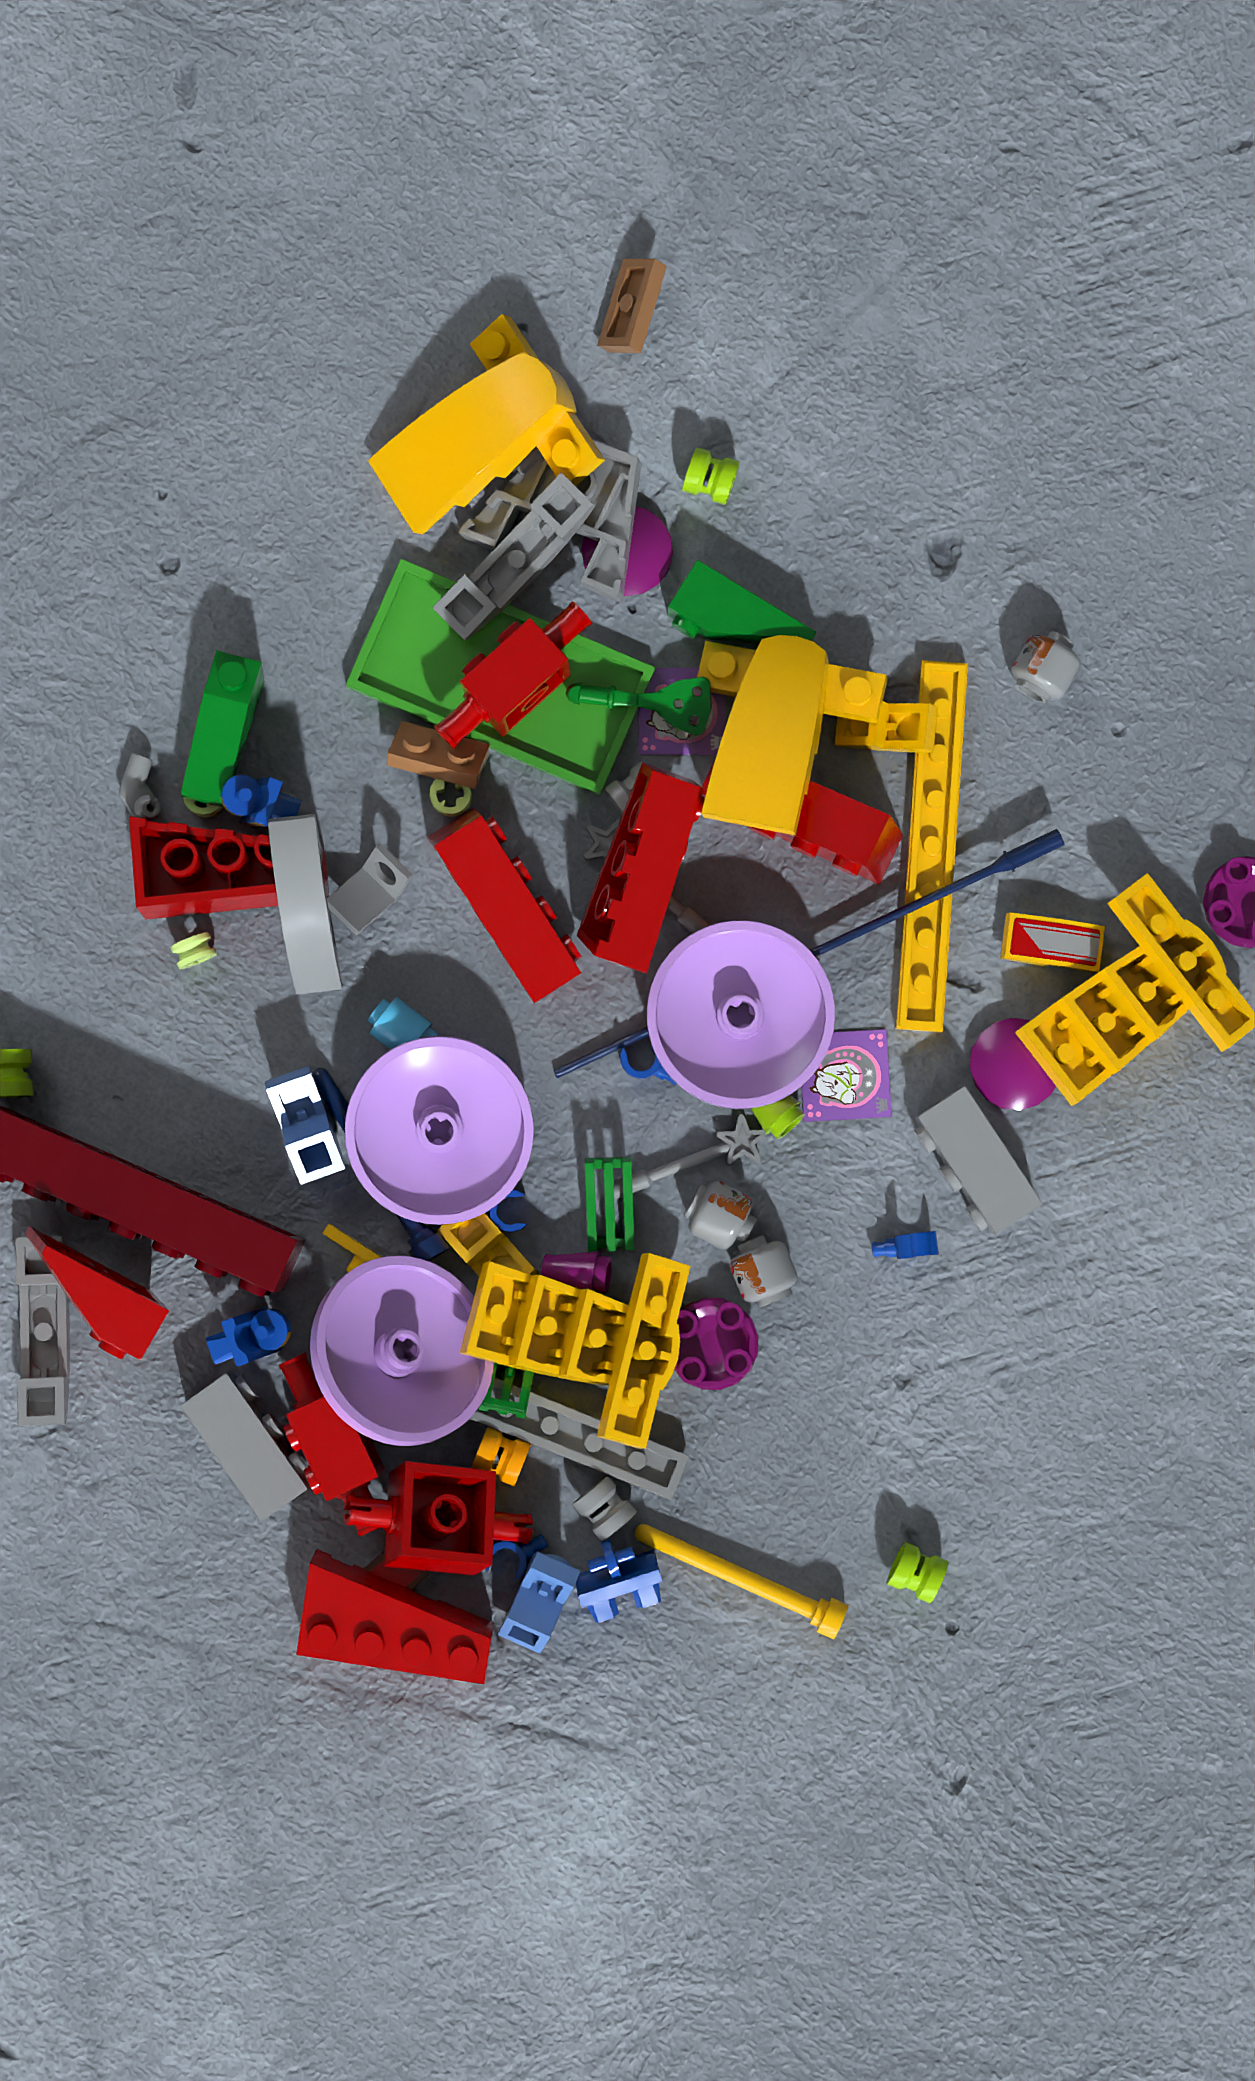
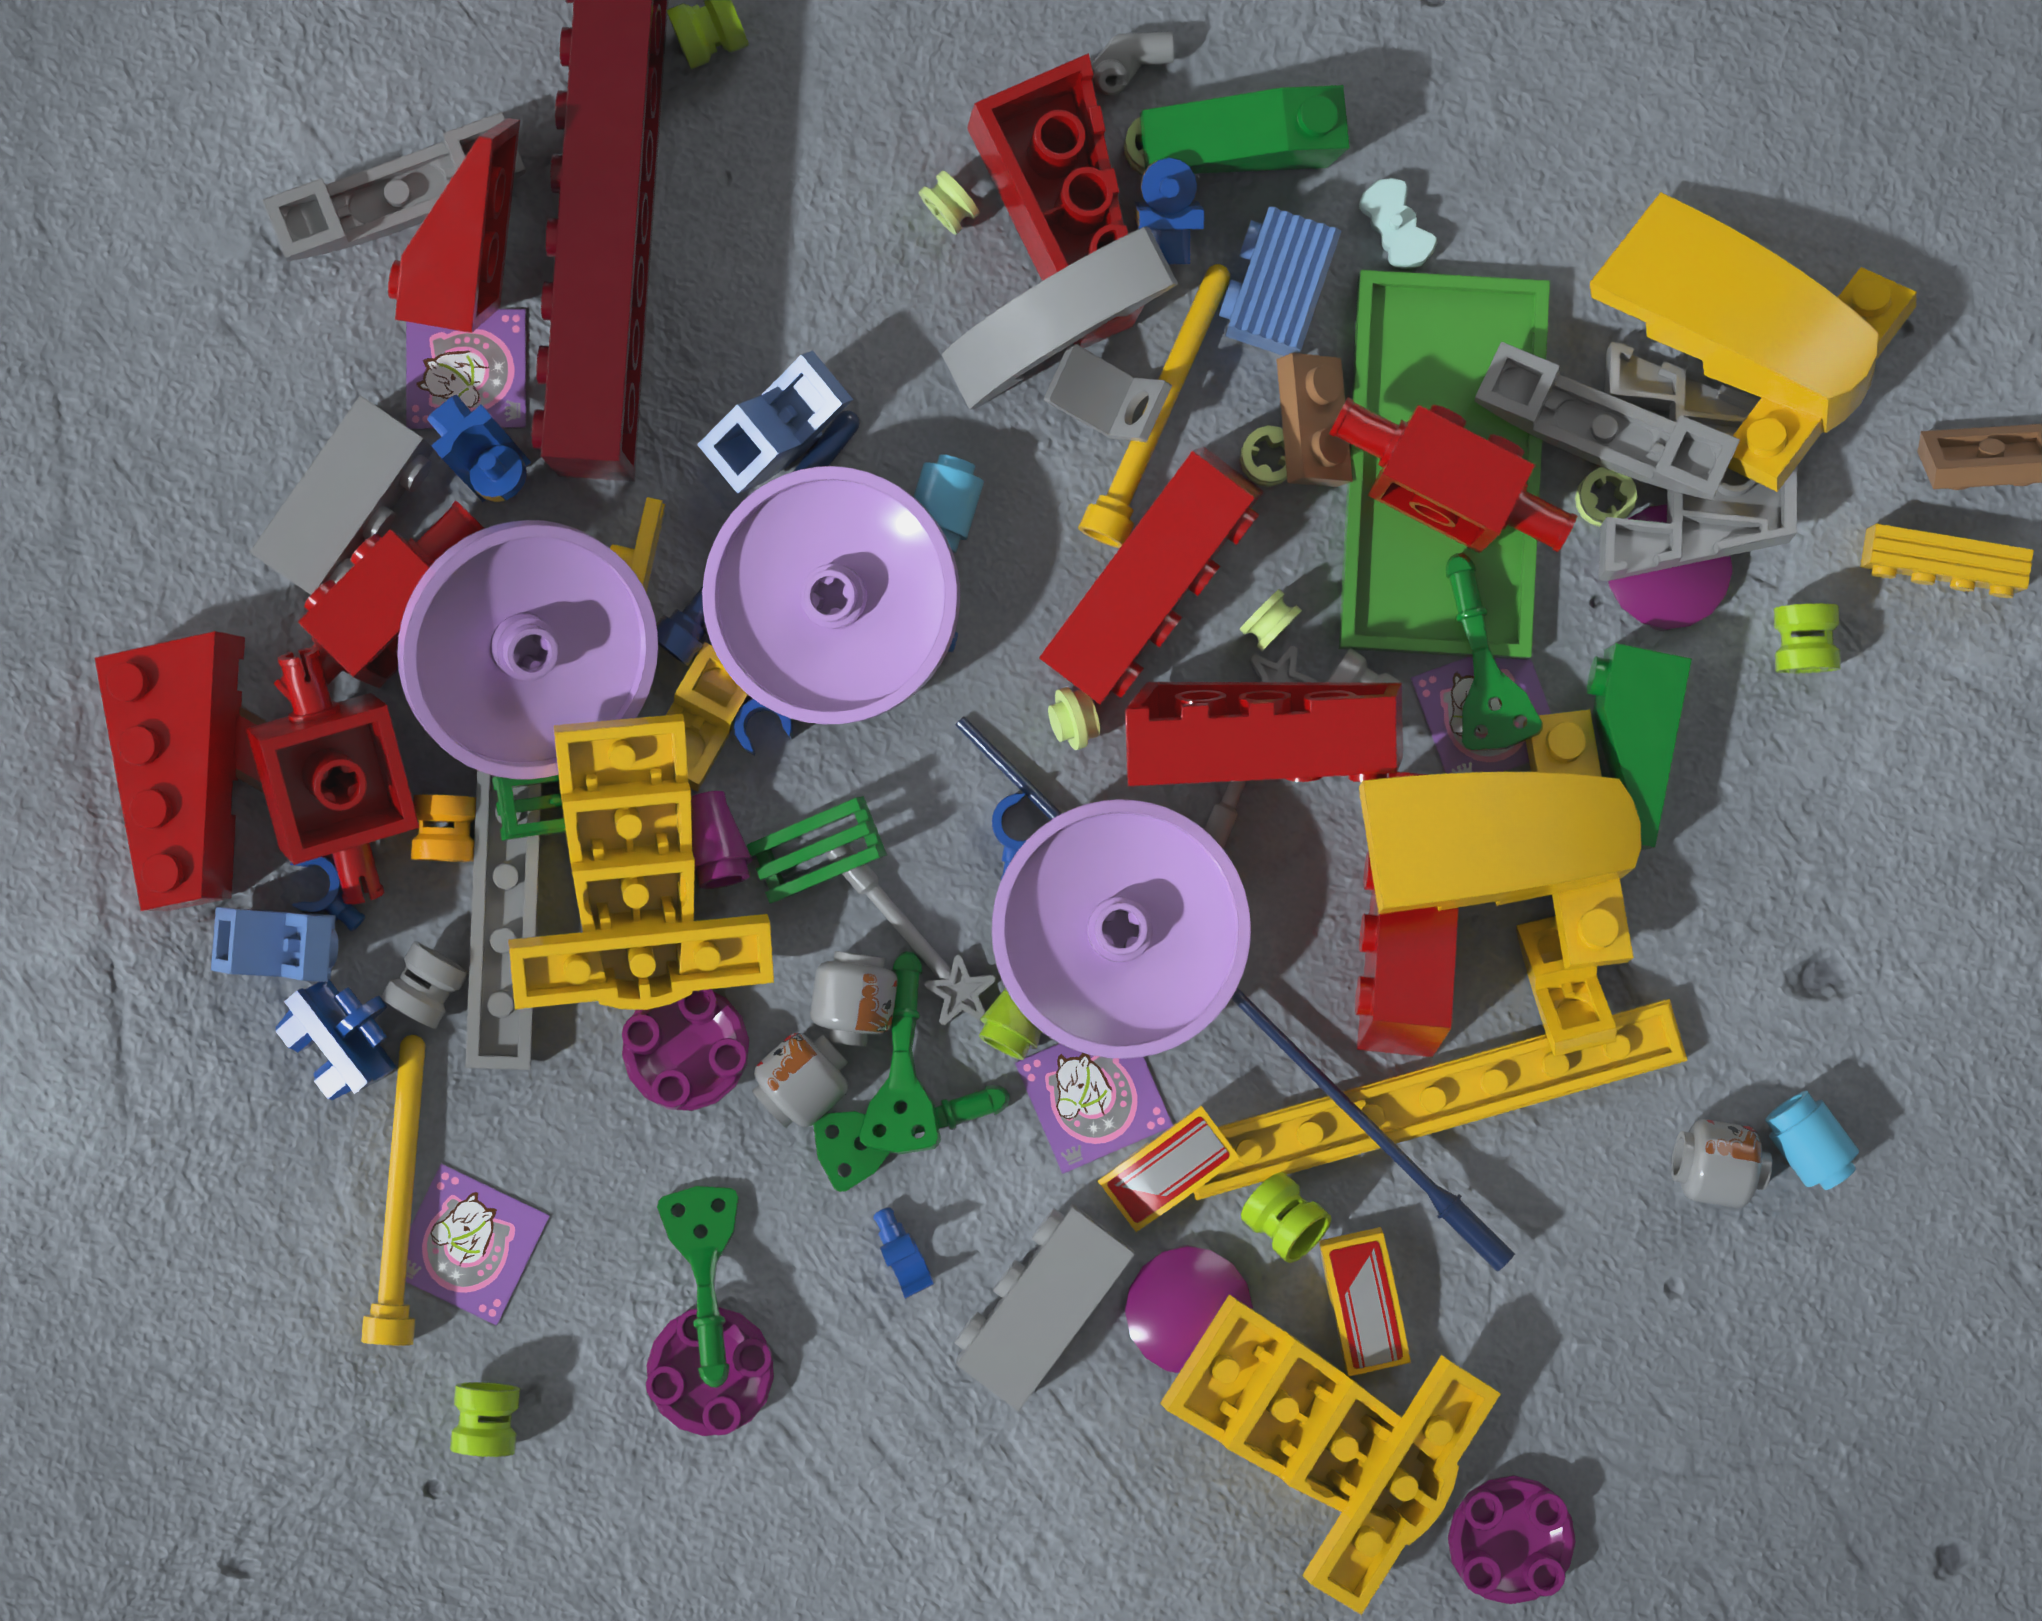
camera: 70 degrees right, 0 degrees up
(182, 1336) = (476, 366): none -> sticker
(322, 648) = (1396, 223): none -> light aqua piece
(334, 742) = (1281, 282): none -> medium blue brick
(452, 918) = (1111, 515): none -> yellow piece
(562, 590) = (1587, 501): none -> yellowish green bush
(564, 835) = (1270, 619): none -> yellowish green bush
(583, 994) = (1074, 717): none -> yellowish green plate
(690, 361) = (1947, 559): none -> yellow piece
(789, 1202) = (902, 1080): none -> green piece
(793, 1541) = (471, 1243): none -> sticker
(822, 1228) = (864, 1163): none -> green piece
(859, 1383) = (703, 1256): none -> green piece
(914, 1042) = (1168, 1168): none -> slope
(940, 1406) = (682, 1394): none -> magenta dish
(976, 974) = (1286, 1217): none -> lime wheel
(1053, 599) = (1812, 1141): none -> medium azure brick

